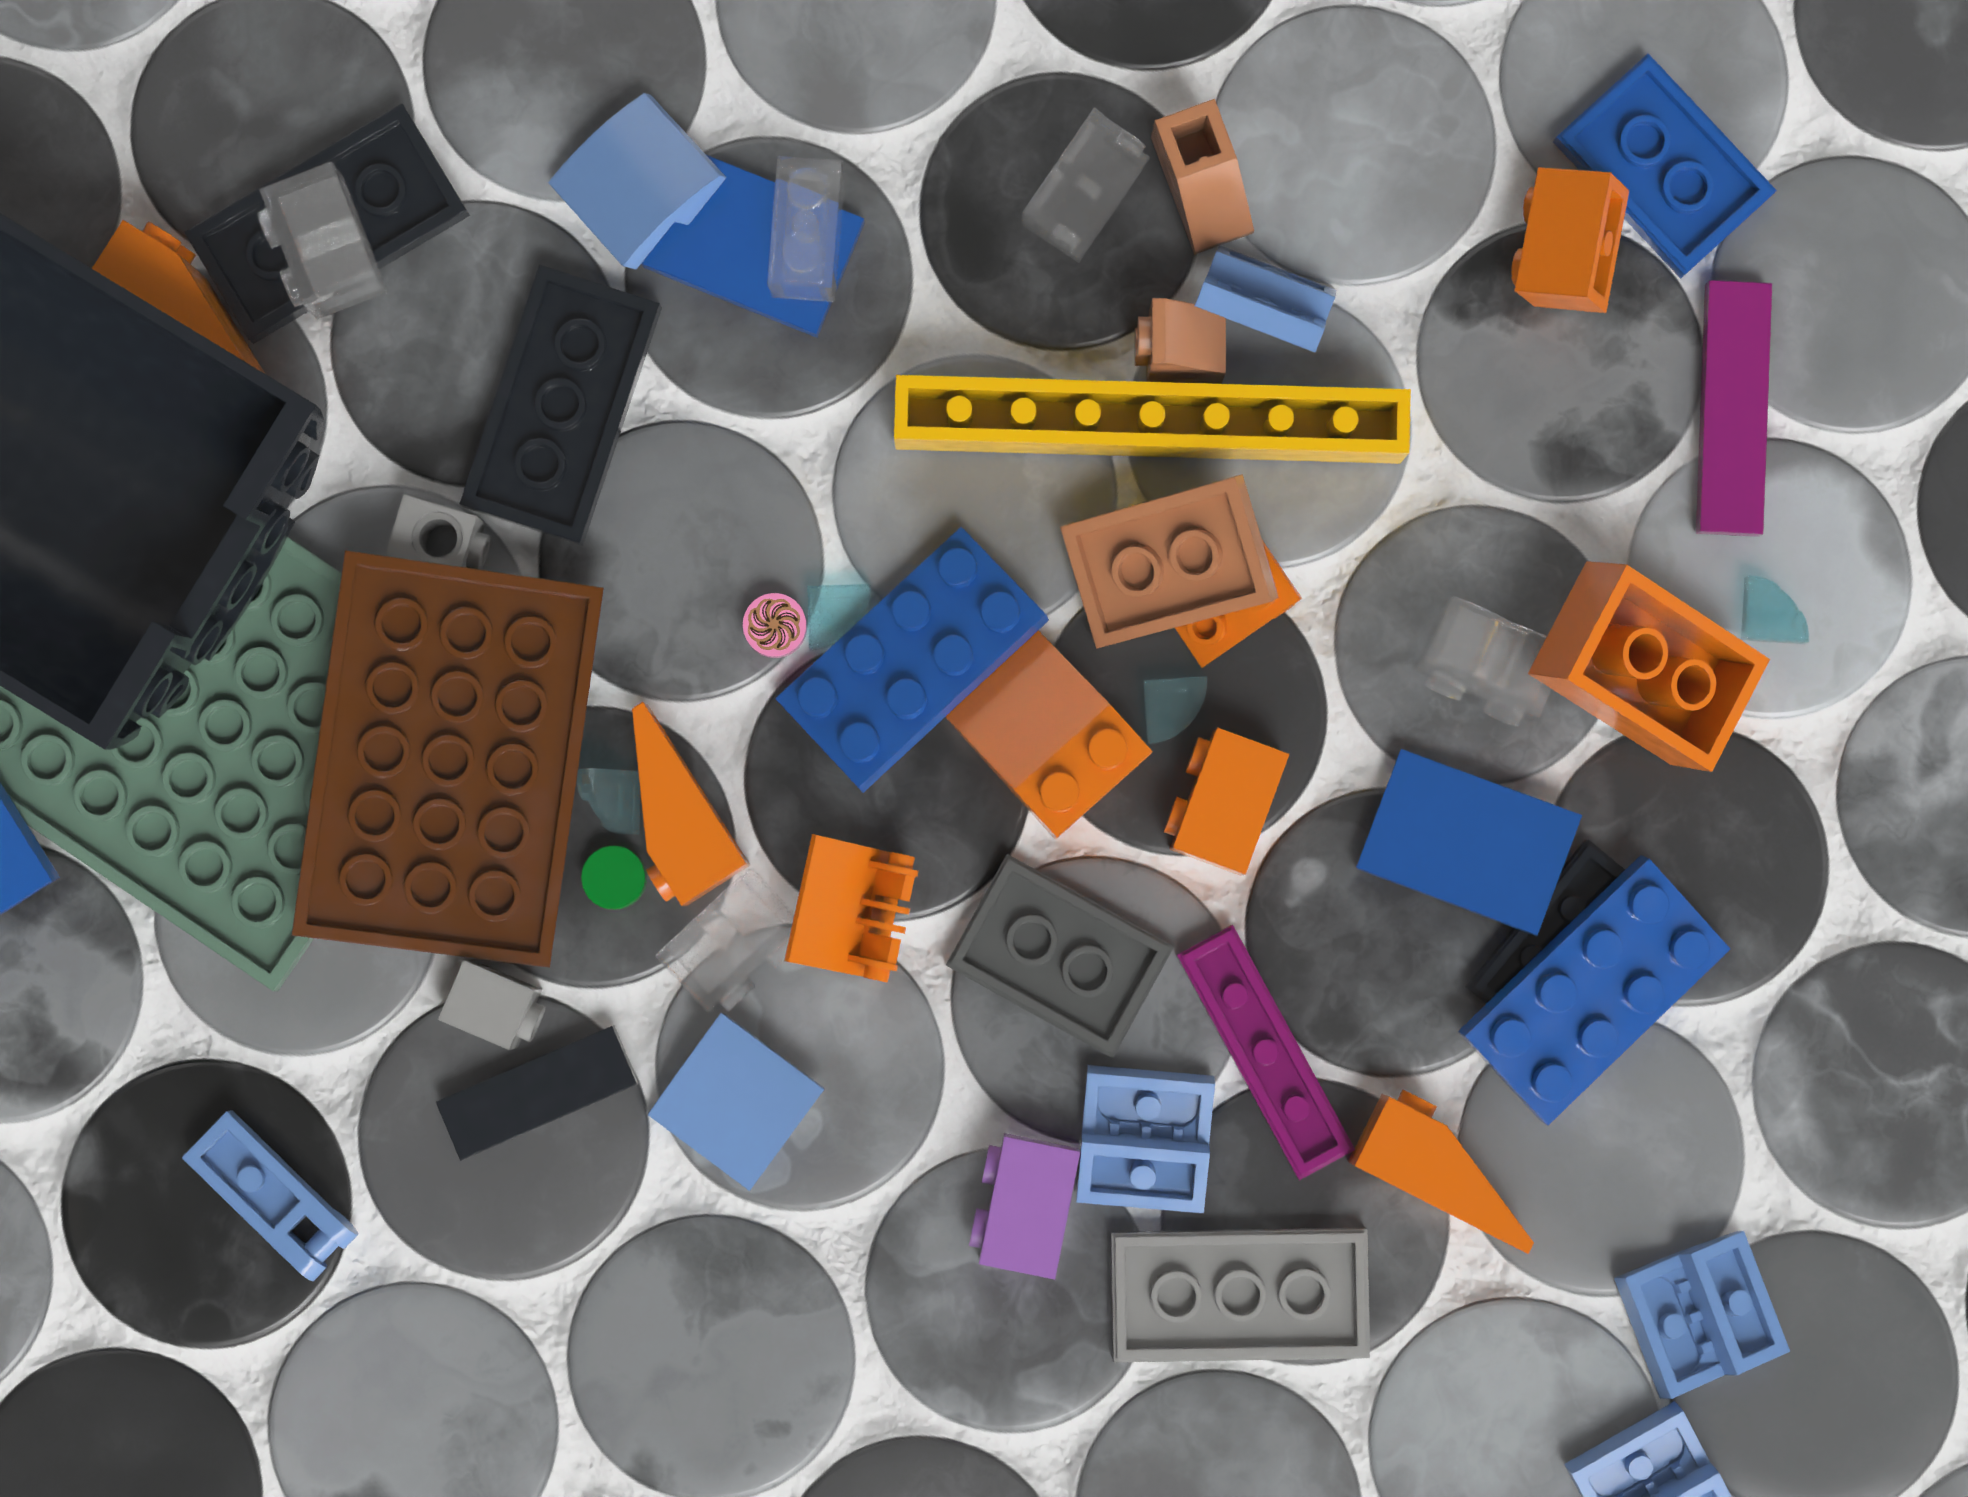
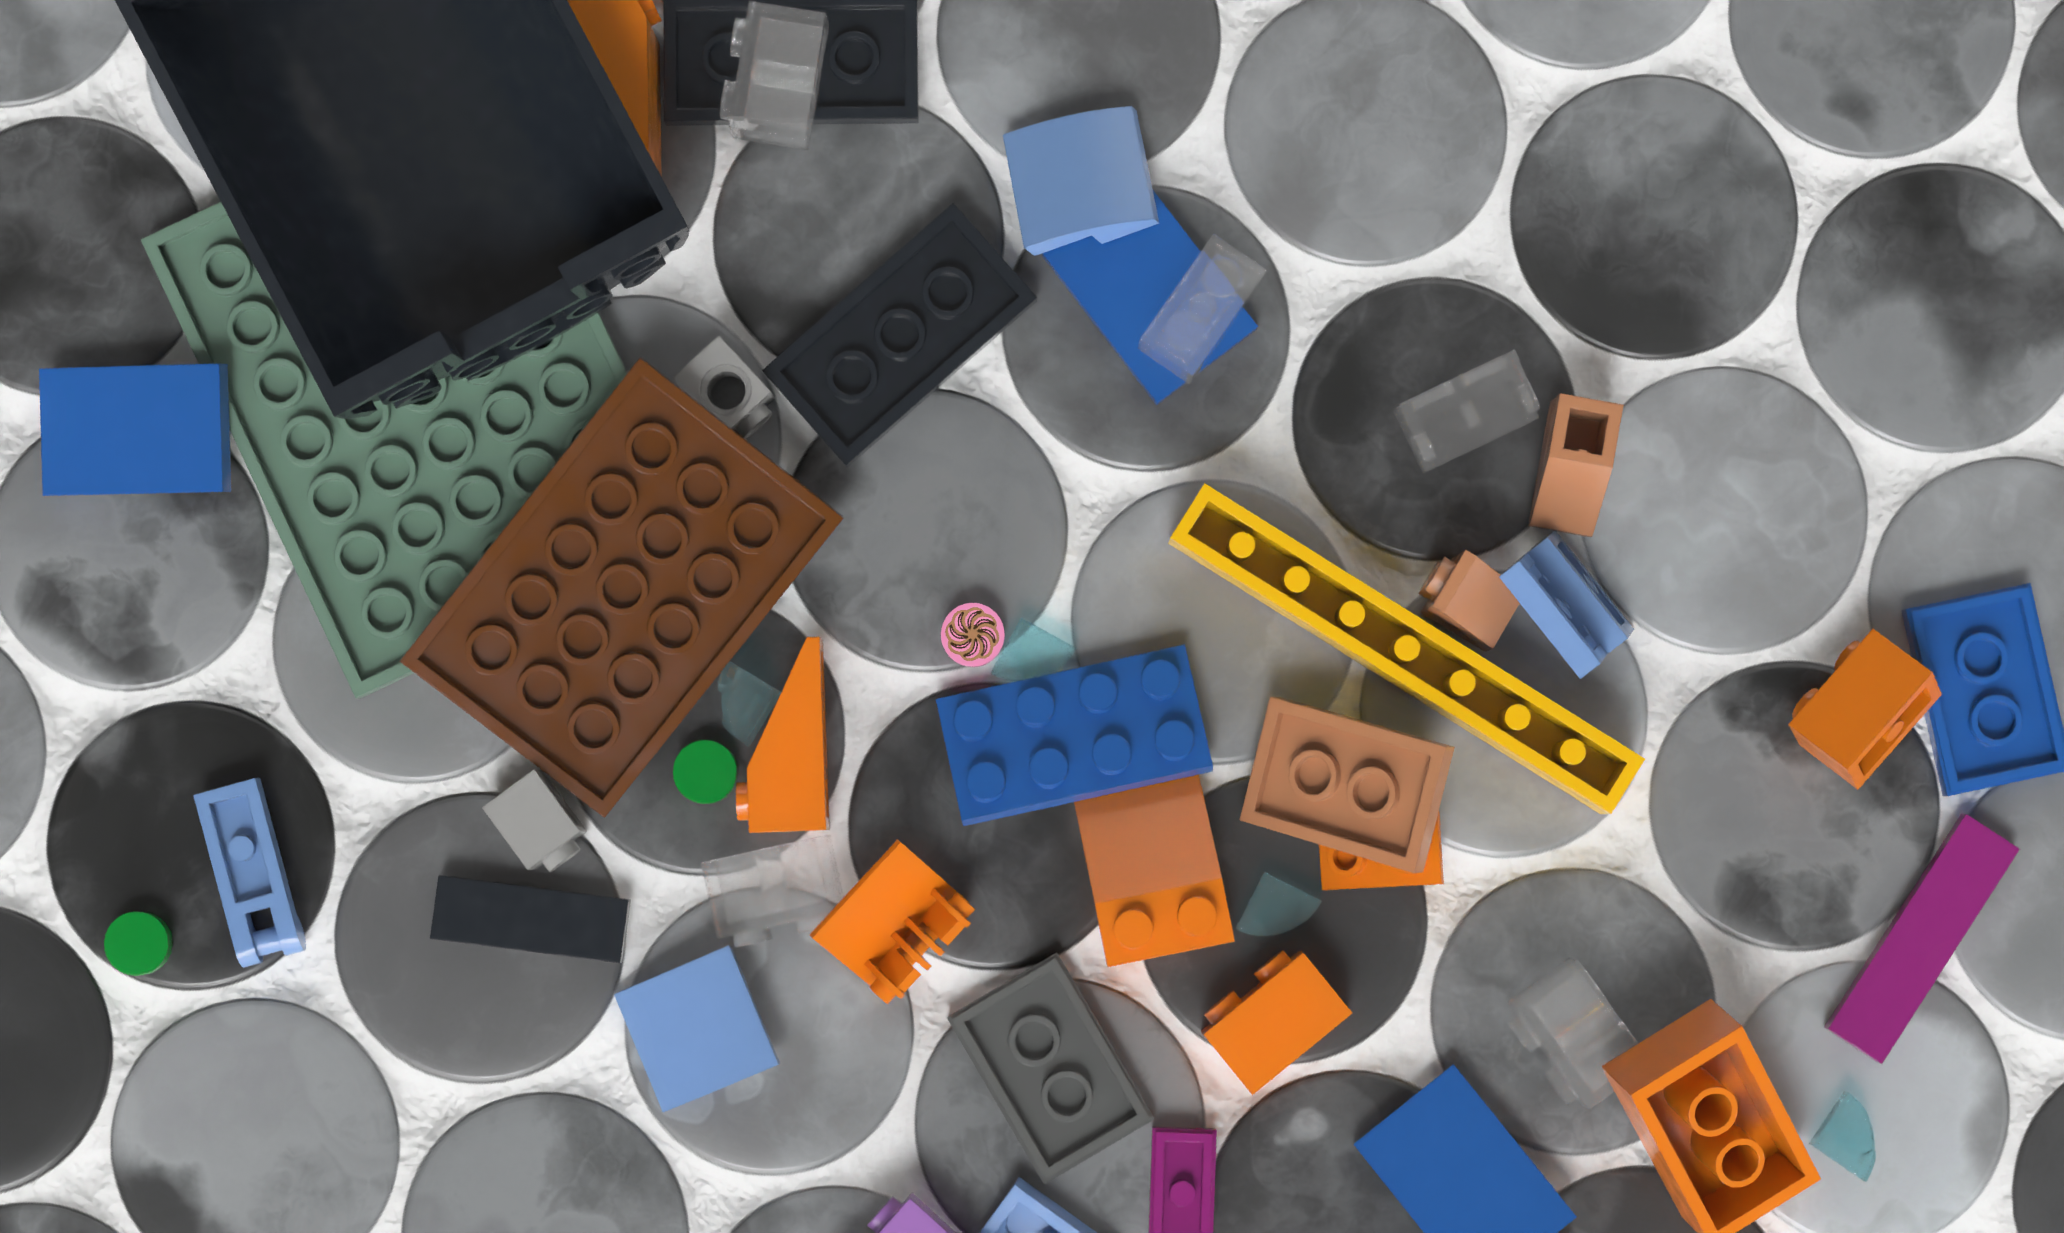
camera: 35 degrees right, 0 degrees up
(209, 1314) = (138, 943): none -> green tile

